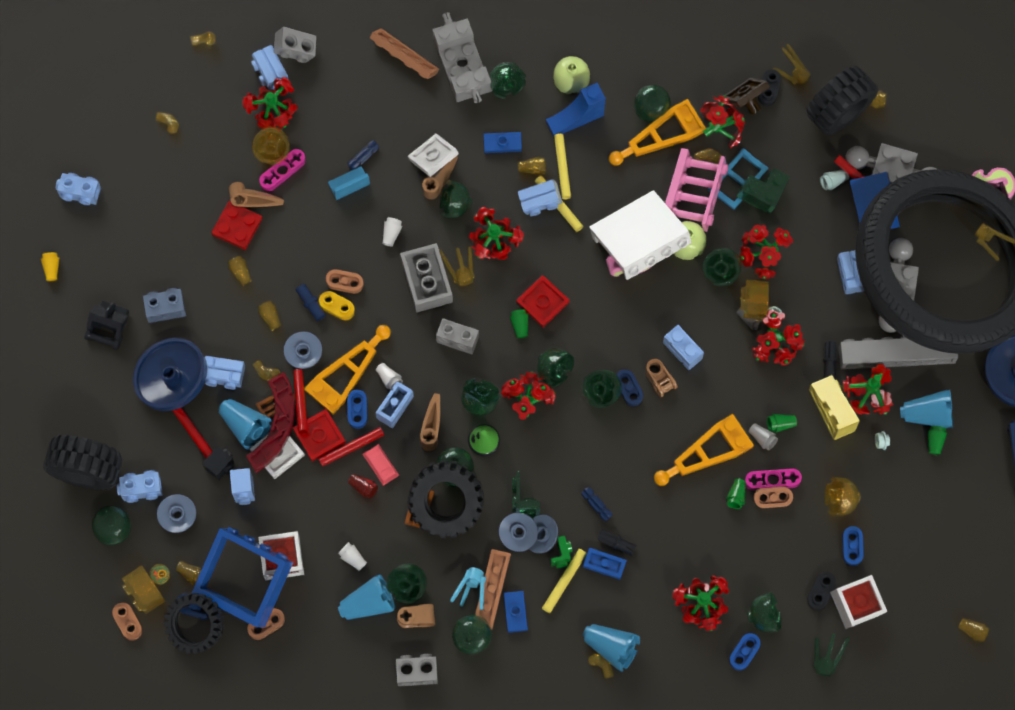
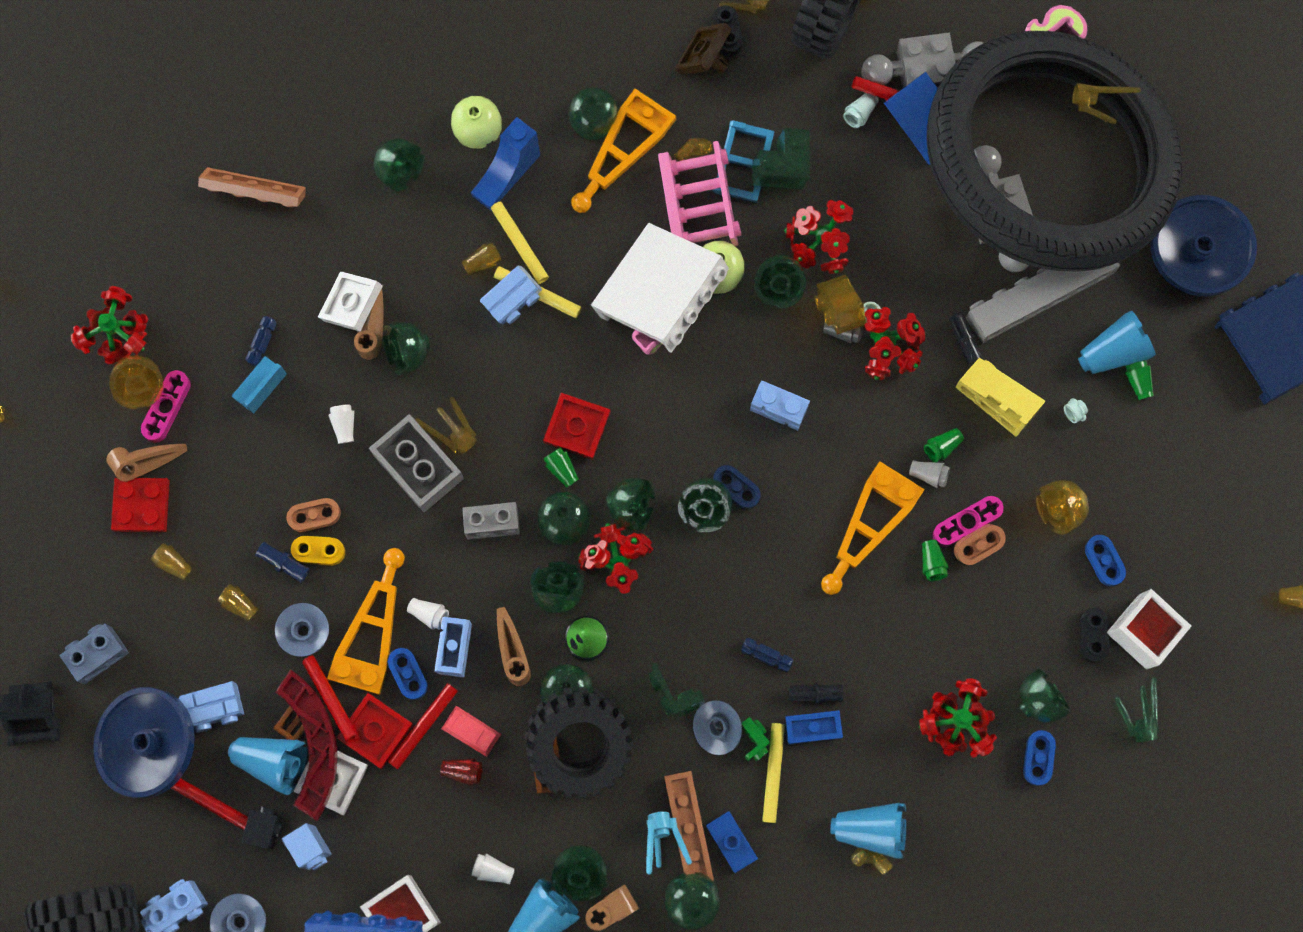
camera: 25 degrees left, 5 degrees up
(265, 373) = (266, 681): clear yellow arm -> none
(268, 66) = (85, 279): light blue brick -> none
(295, 41) = (105, 232): light grey brick -> none
(456, 43) = (311, 146): light grey brick -> none
(495, 231) = (476, 362): red plant -> none
(502, 142) = (430, 245): blue plate -> none
(505, 356) = (567, 529): none -> clear green cylinder
(511, 538) = (687, 750): sand blue dish -> none
(661, 381) = (770, 457): medium nougat piece -> none
(720, 119) = (688, 94): red plant -> none
(849, 272) = (938, 216): light blue brick -> none
(860, 387) = (1048, 359): red plant -> none

